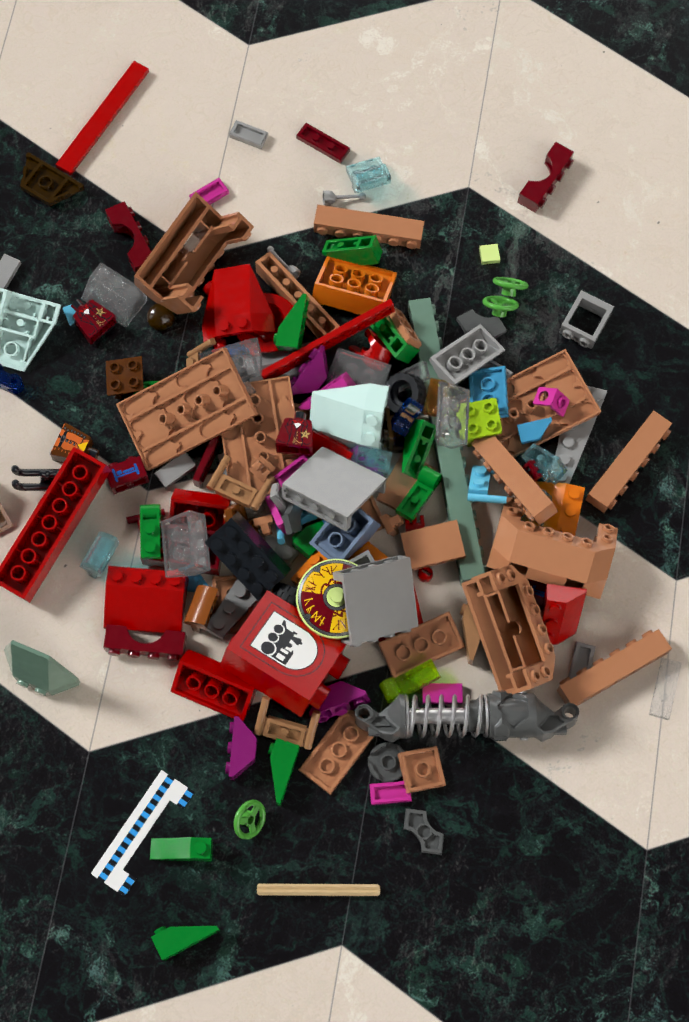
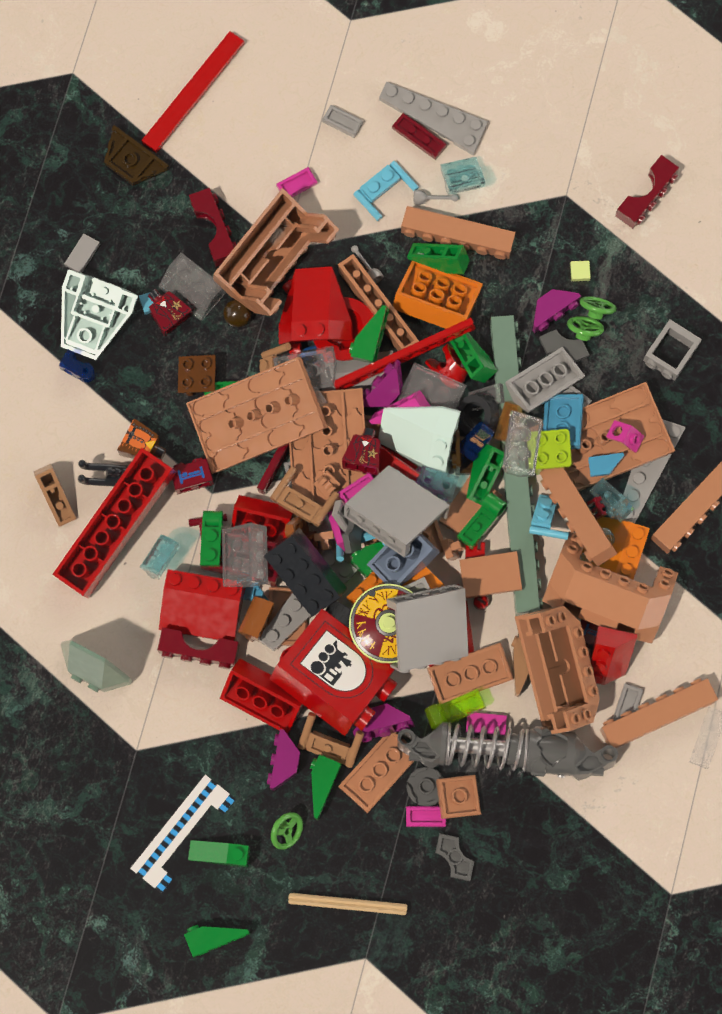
camera: 10 degrees right, 5 degrees up
(175, 470) = (240, 475): light grey tile -> none
(289, 189) = (380, 184): none -> medium azure plate
(349, 128) = (448, 122): none -> light grey wing
(405, 328) = (484, 346): nougat tile -> none
(467, 288) = (553, 306): none -> magenta slope

